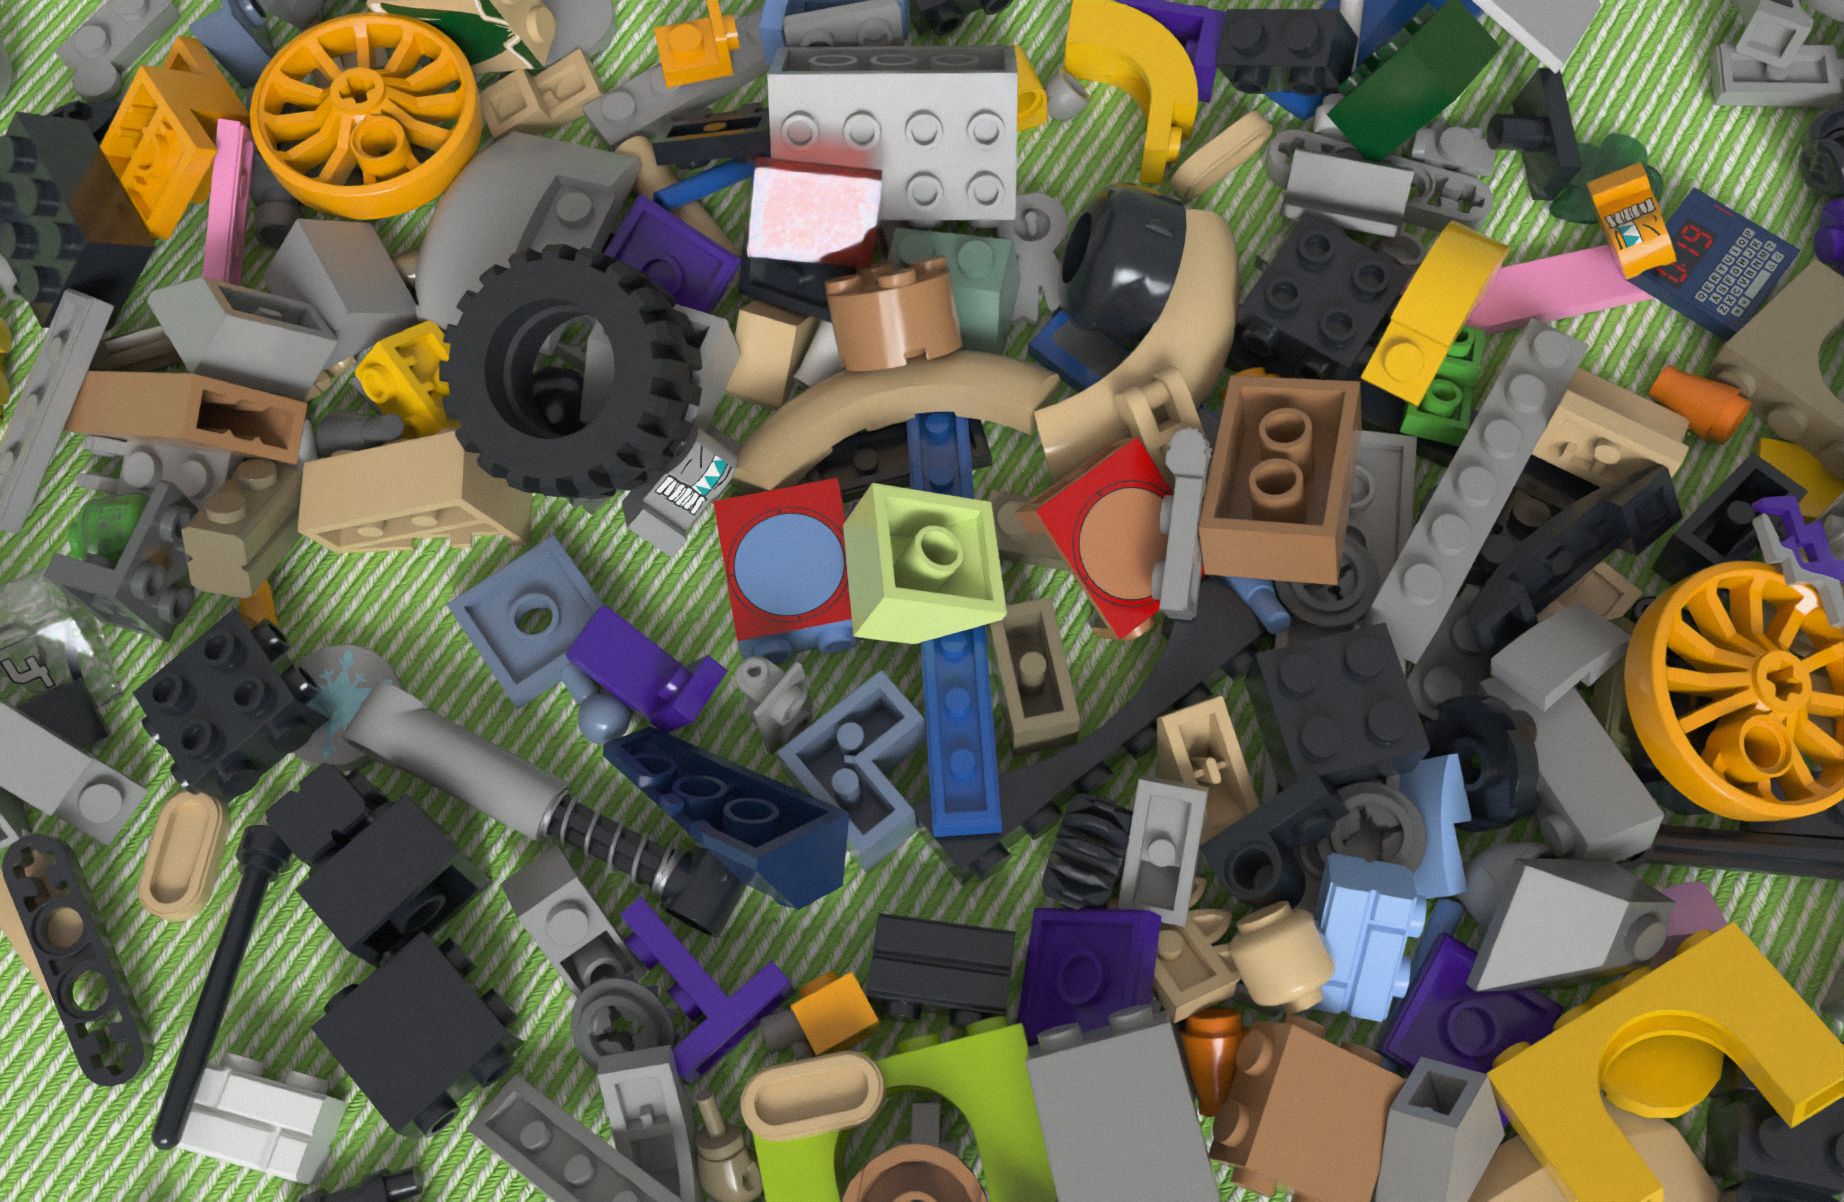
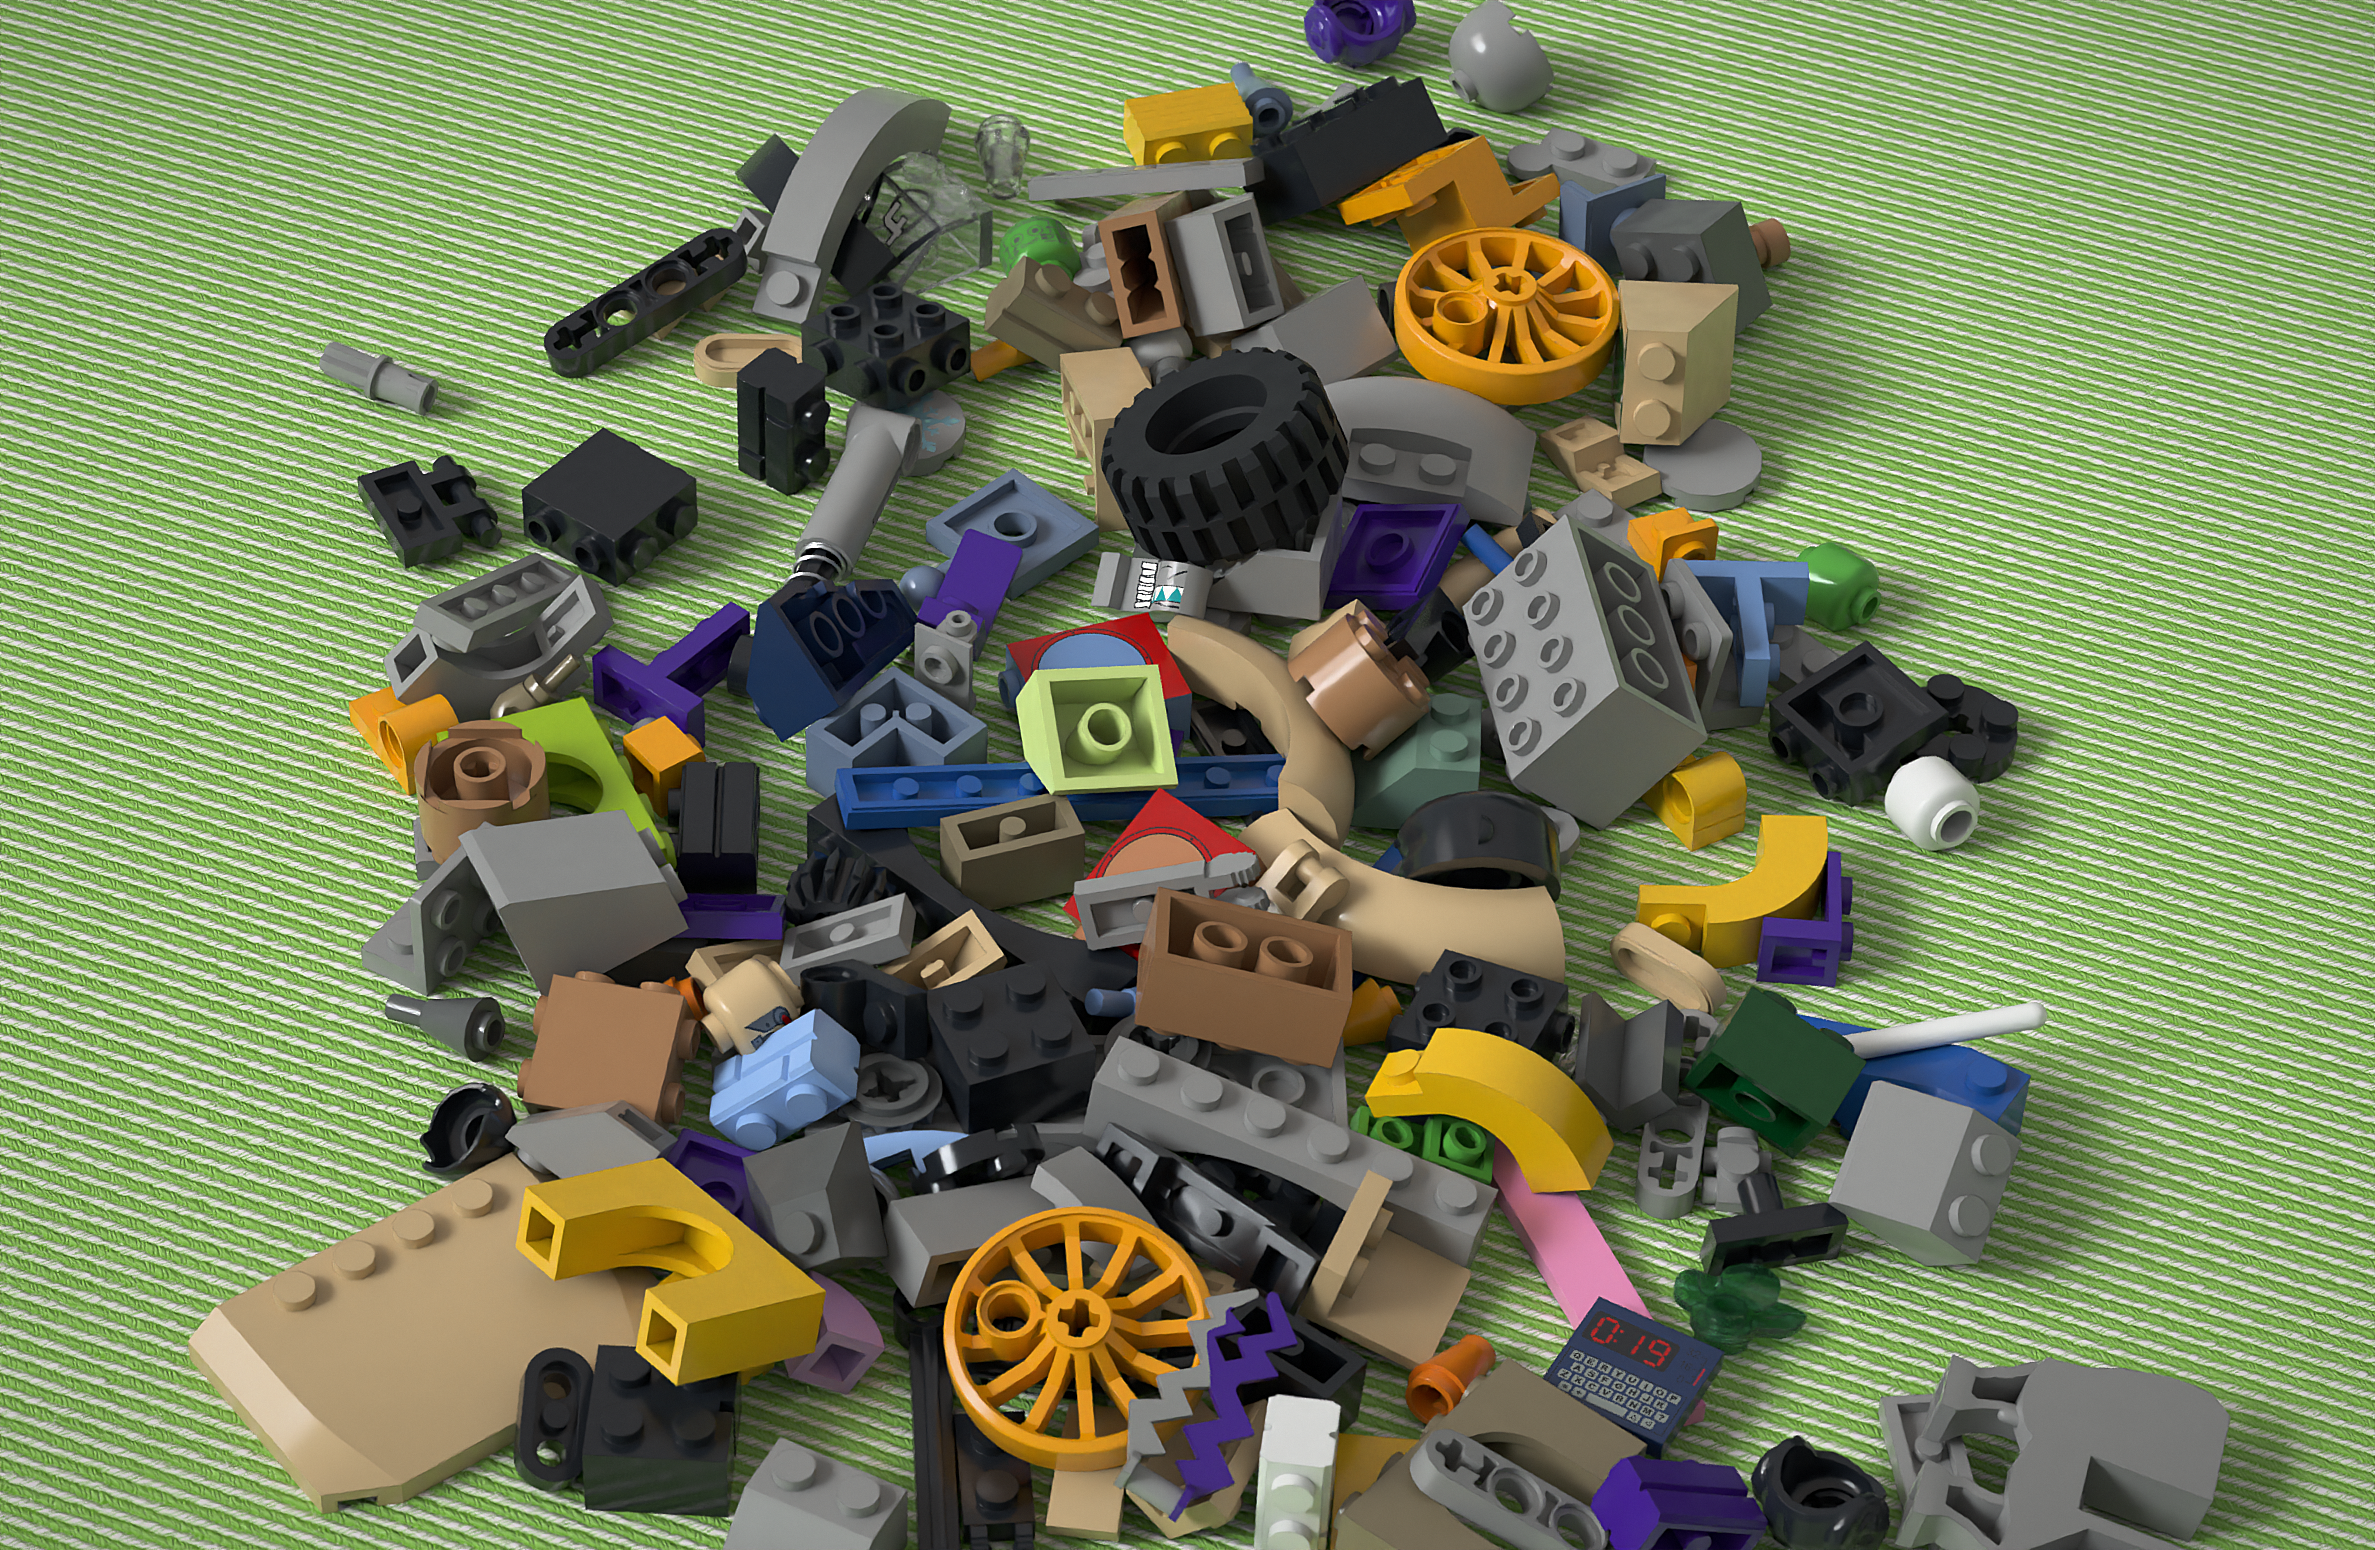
camera: 75 degrees right, 25 degrees down
(150, 582) = (988, 252): dark grey bracket -> none
(229, 202) = (1371, 251): bright pink tile -> none
(261, 861) = (615, 375): black piece -> none
(263, 1122) = (526, 428): white brick -> none
(392, 881) = (743, 461): black brick -> none
(568, 922) = (719, 571): light grey slope -> none
(608, 1000) = (641, 626): dark grey gear -> none
(812, 212) = (1441, 601): slope -> none
(813, 1096) = (584, 727): tan tile -> none
(1065, 96) = (1717, 846): light grey hinge -> none
(1286, 50) = (1802, 967): black brick -> none
(1631, 220) = (1646, 1285): light orange leg -> none

